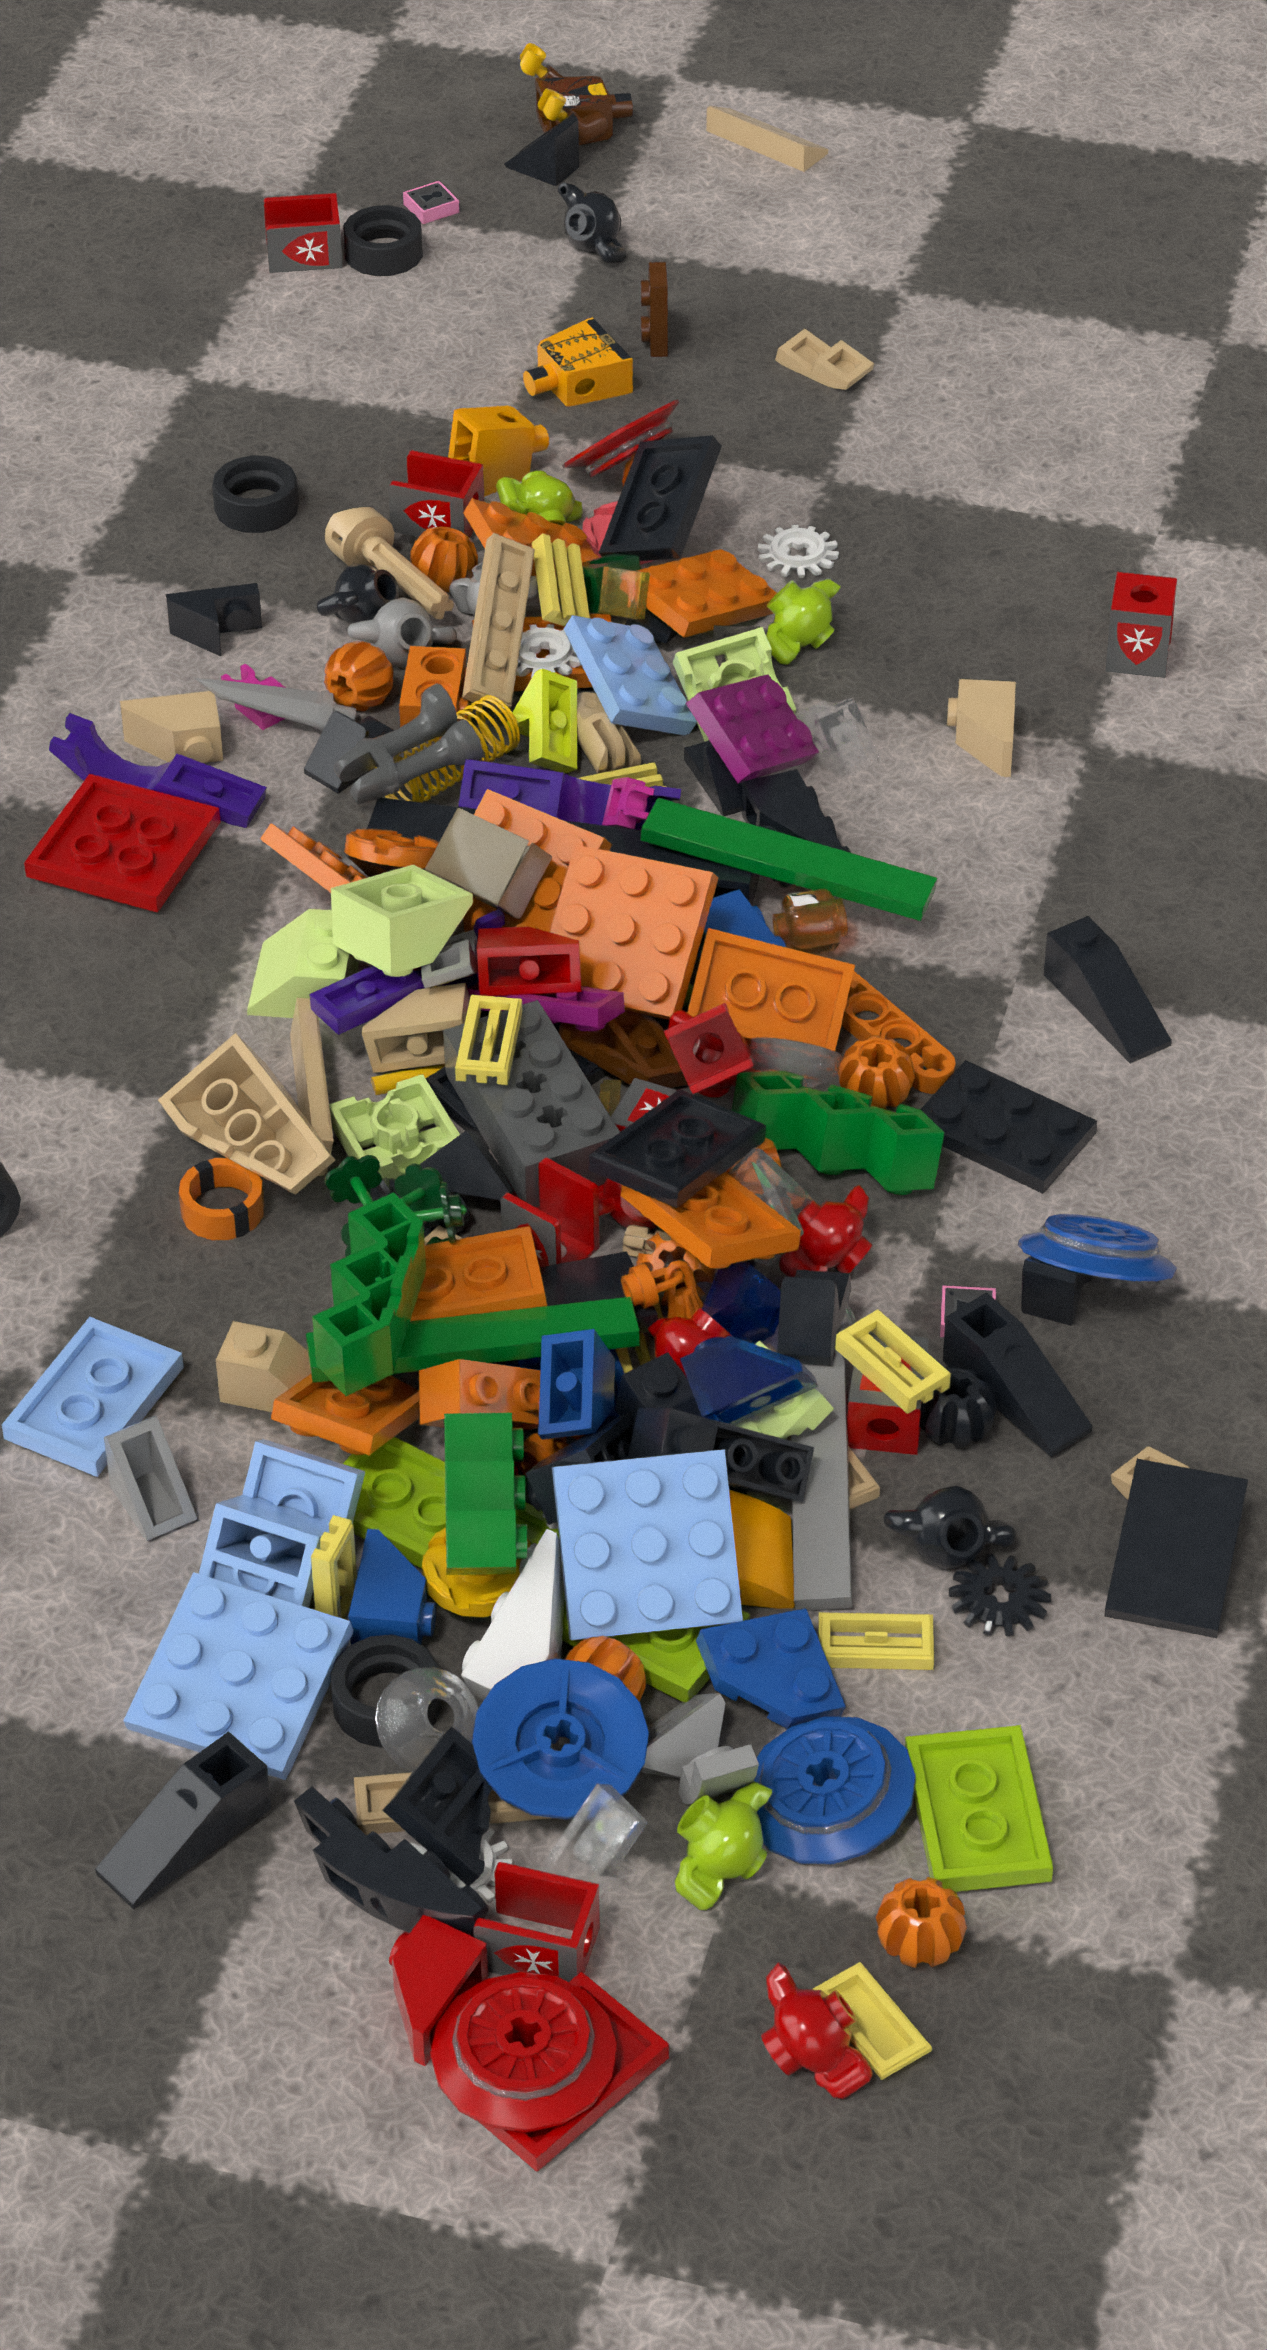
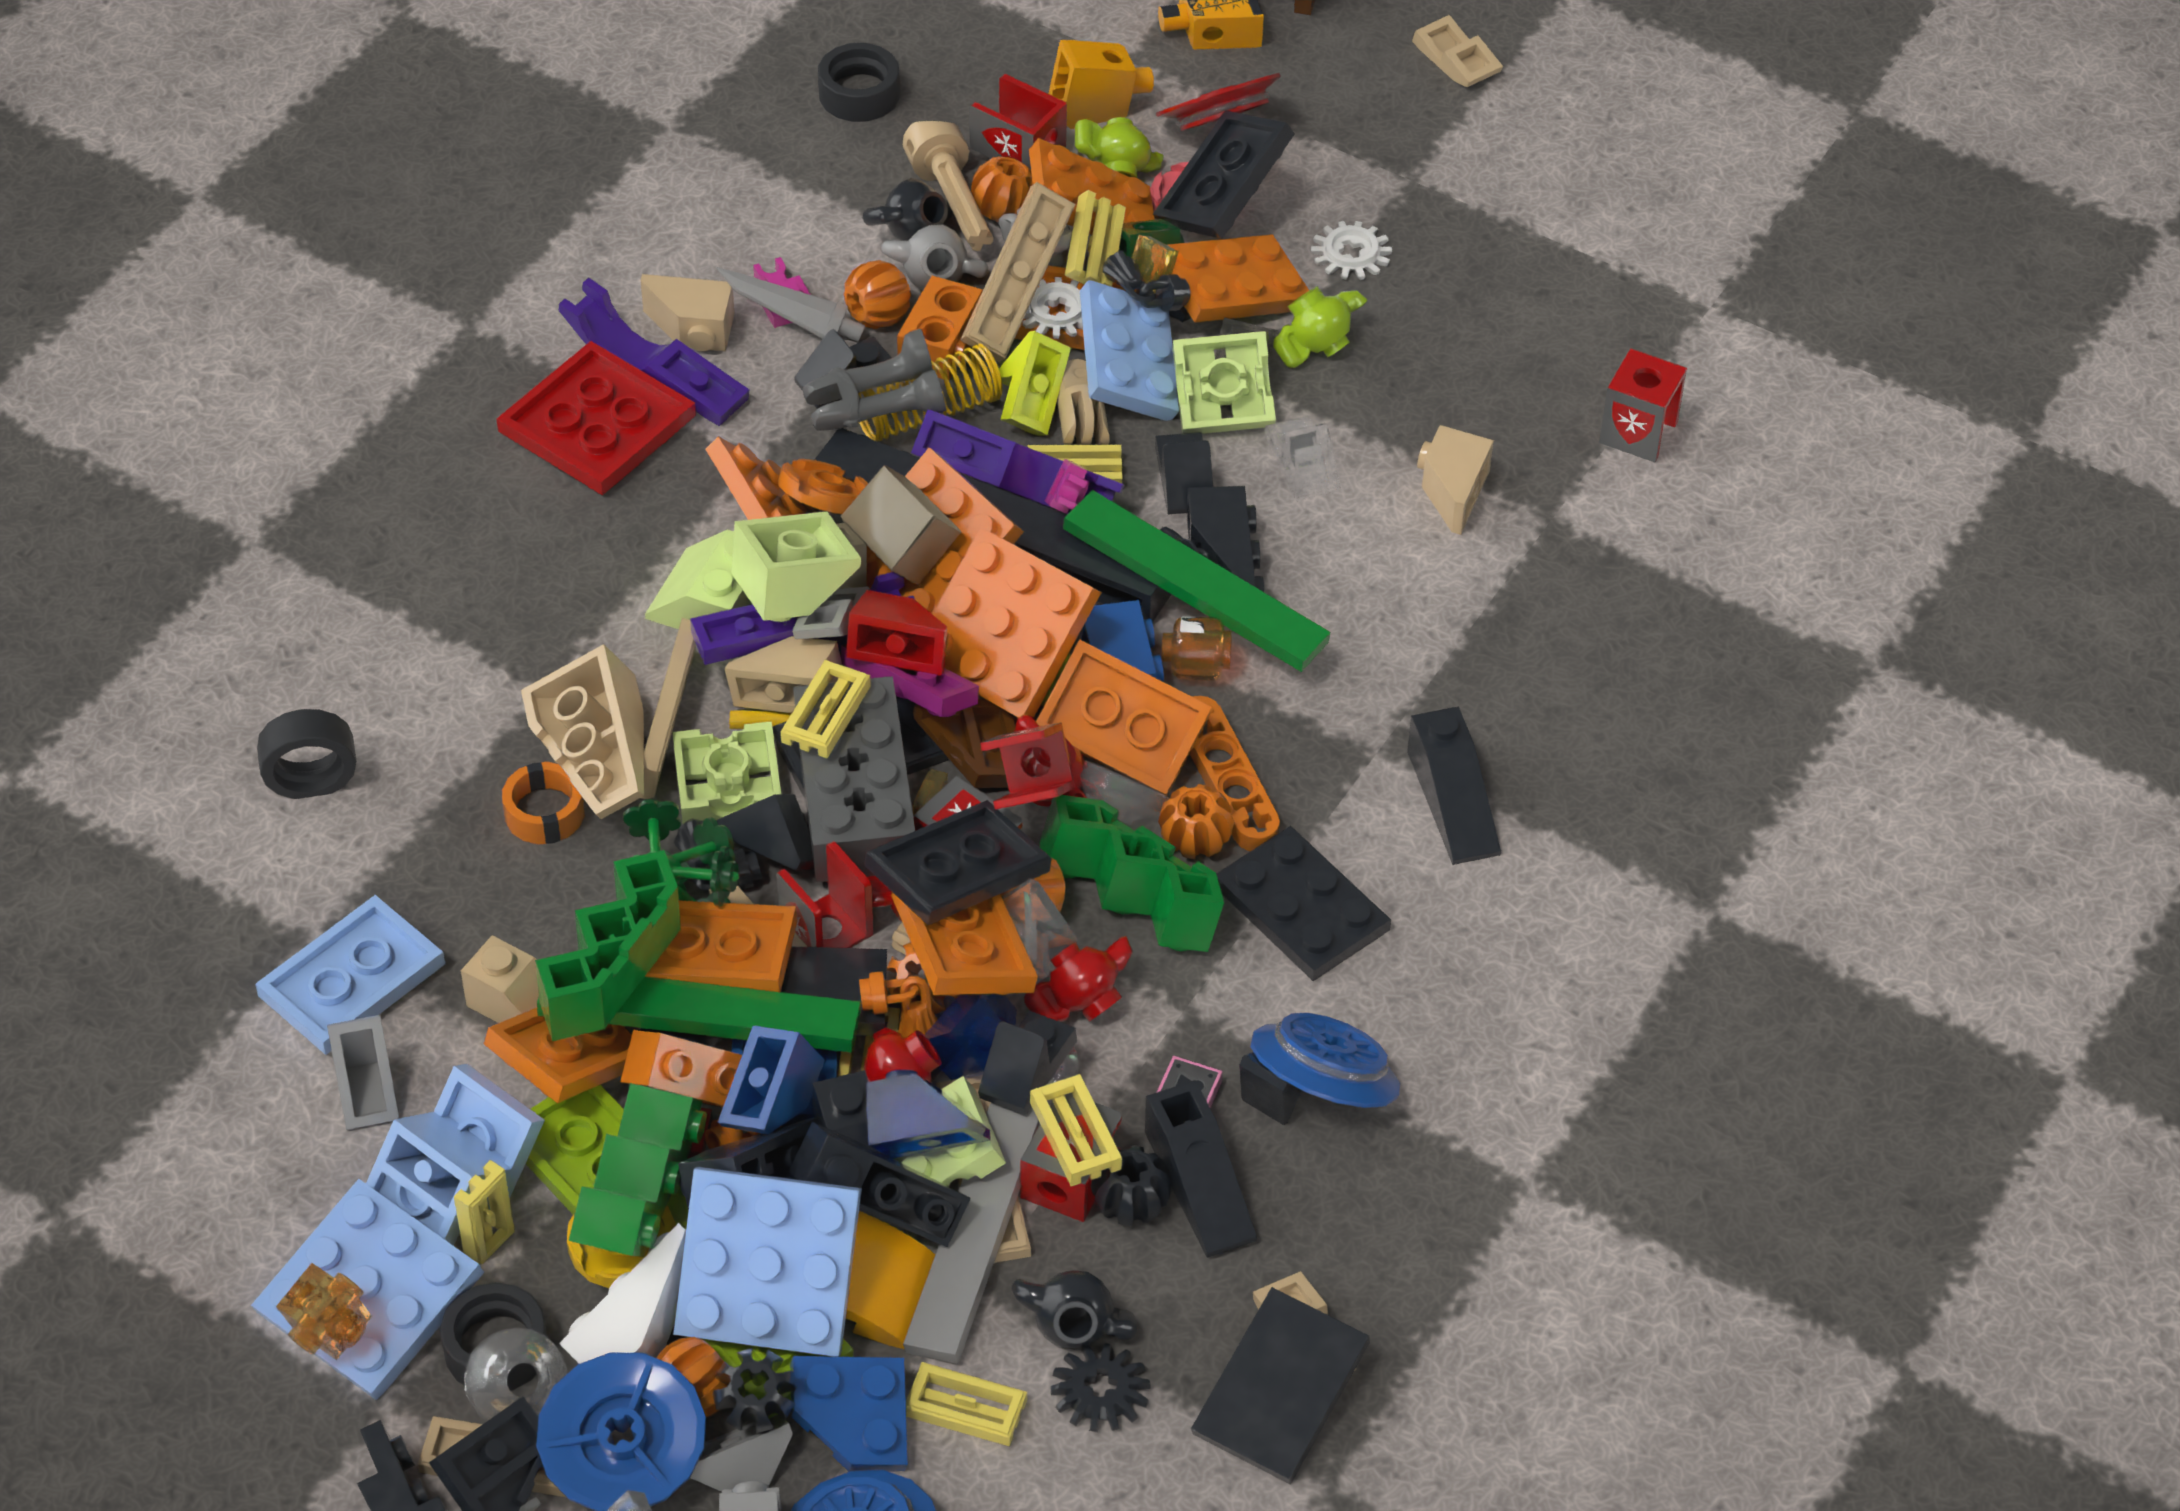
camera: 15 degrees right, 5 degrees up
(188, 1819) = (263, 1421): black slope -> none
(206, 613) = (763, 197): black slope -> none
(218, 1696) = (324, 1312): none -> clear orange brick
(389, 1594) = (530, 1247): blue slope -> none
(648, 614) = (1171, 290): none -> black piece
(691, 1681) = (750, 1407): none -> black piece
(753, 727) = (1215, 435): magenta plate -> none

